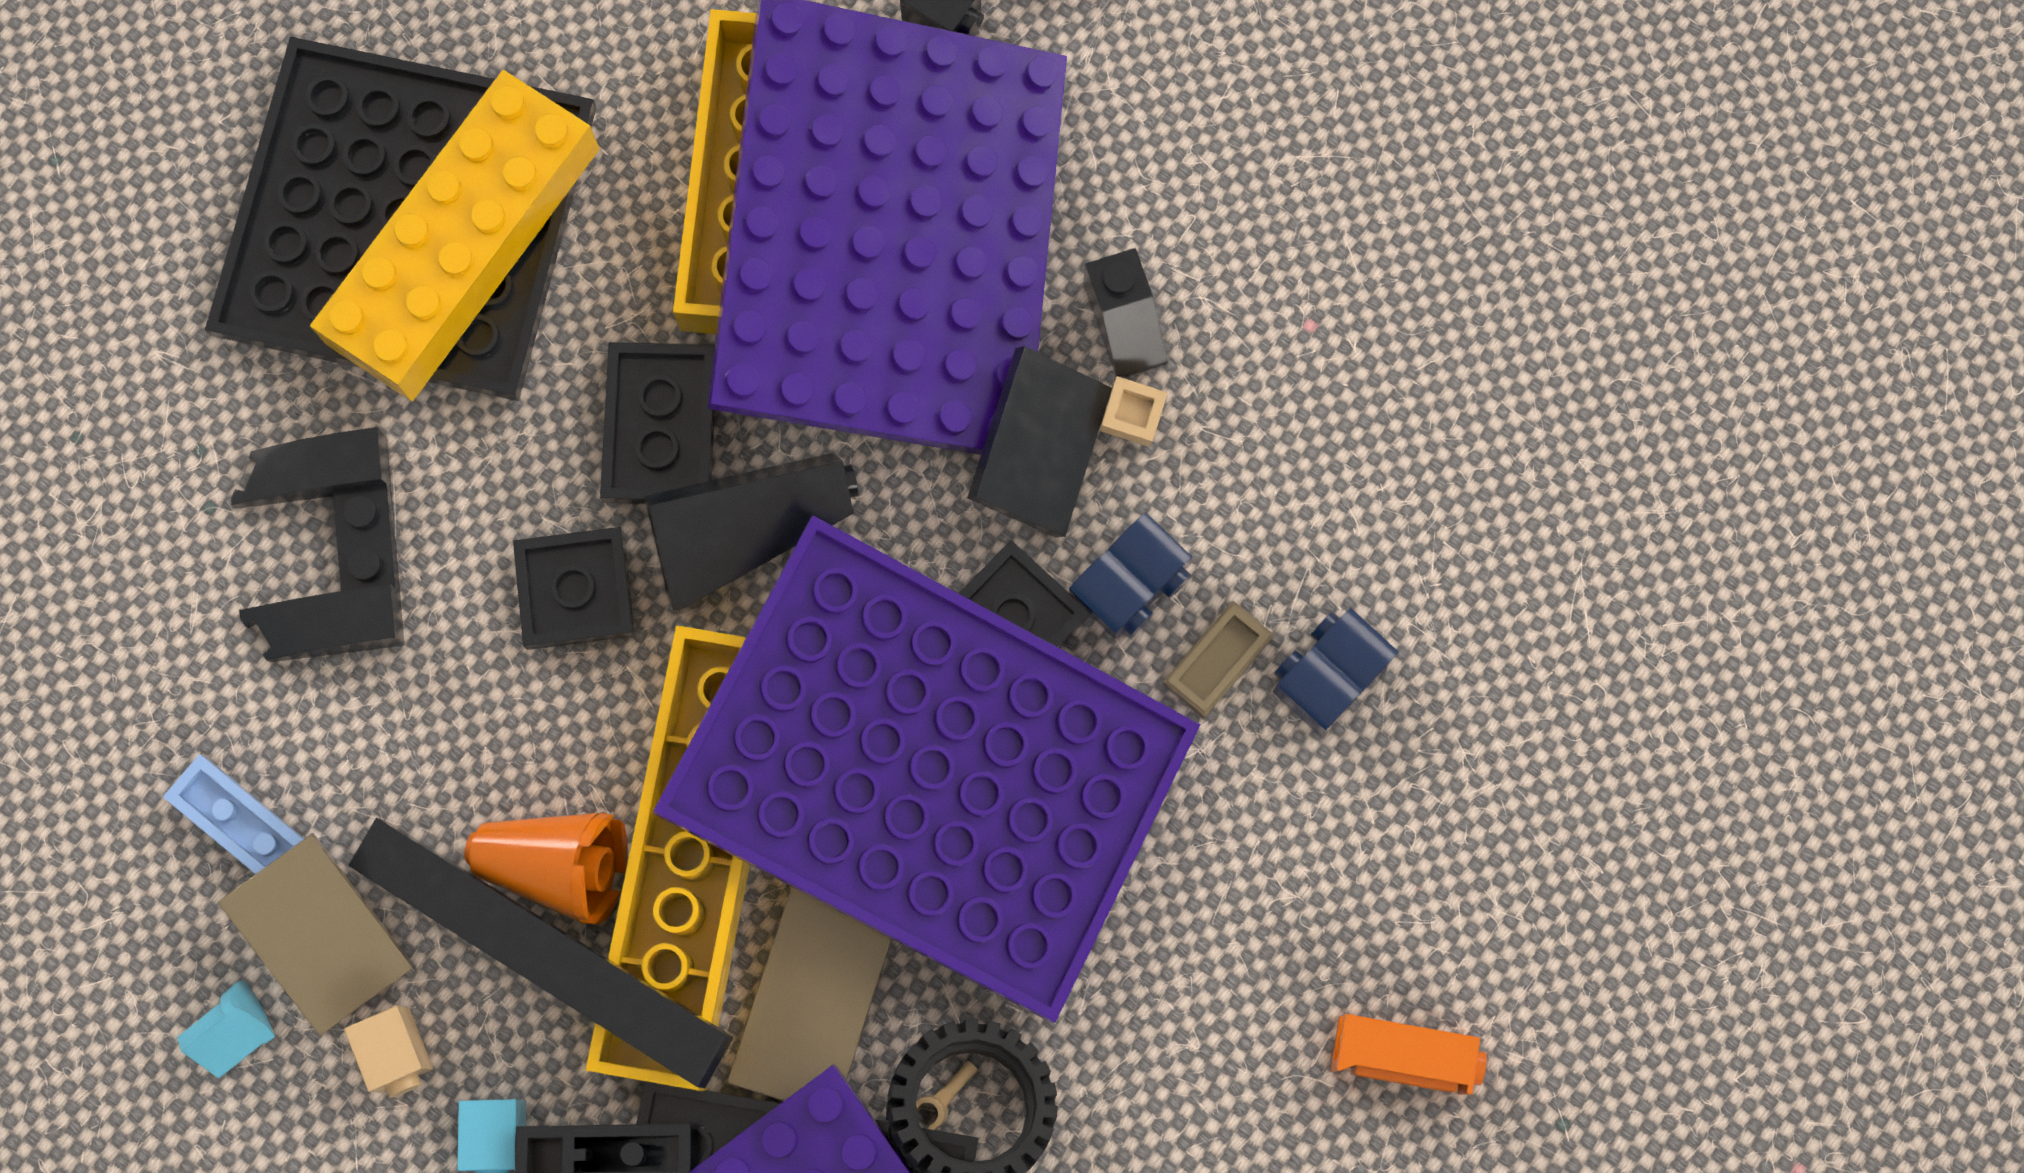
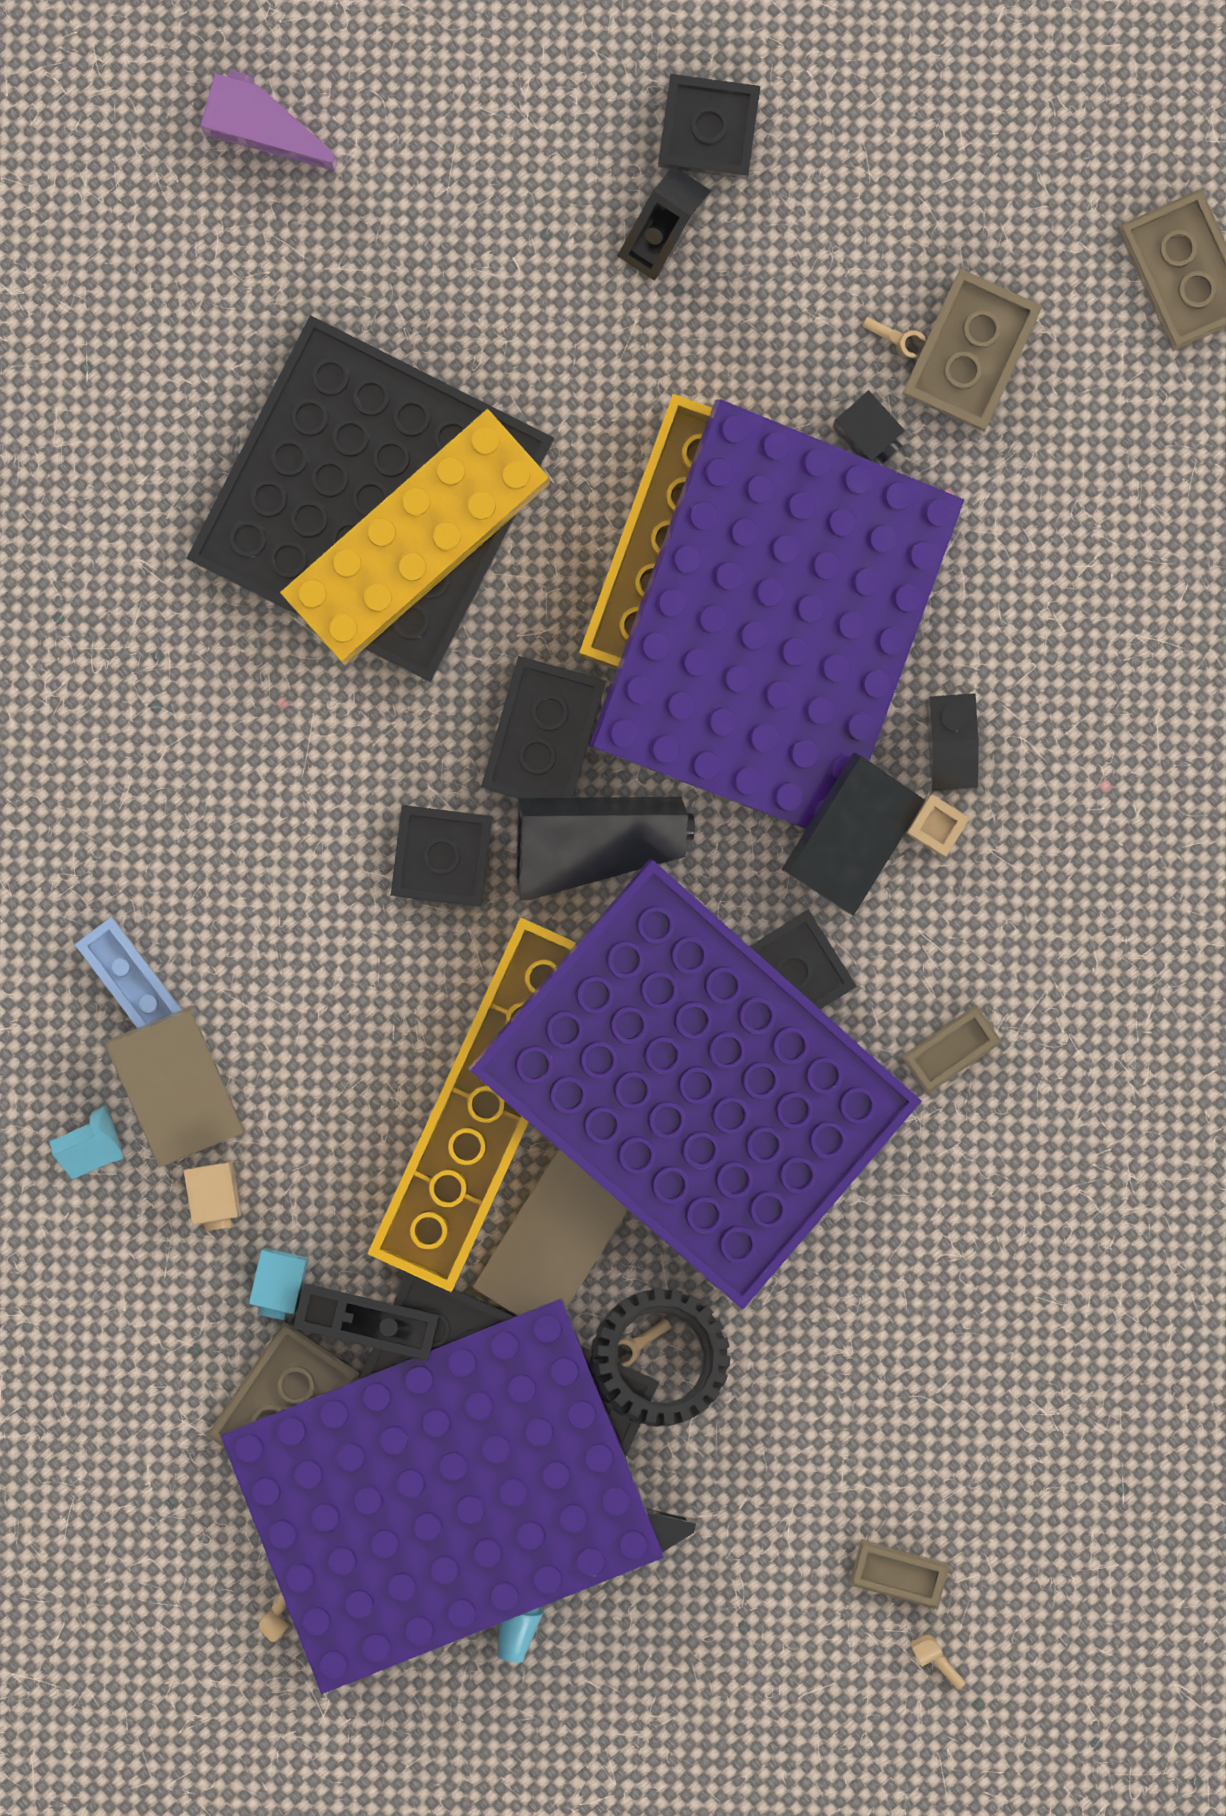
camera: 15 degrees right, 10 degrees up
(368, 608) = (285, 717): black wedge -> none
(542, 953) = (350, 1150): black tile -> none
(554, 861) = (375, 1078): orange cone -> none
(1132, 576) = (898, 965): dark blue brick -> none
(1334, 670) = (1041, 1085): dark blue brick -> none
(1408, 1054) = (1014, 1405): orange window -> none

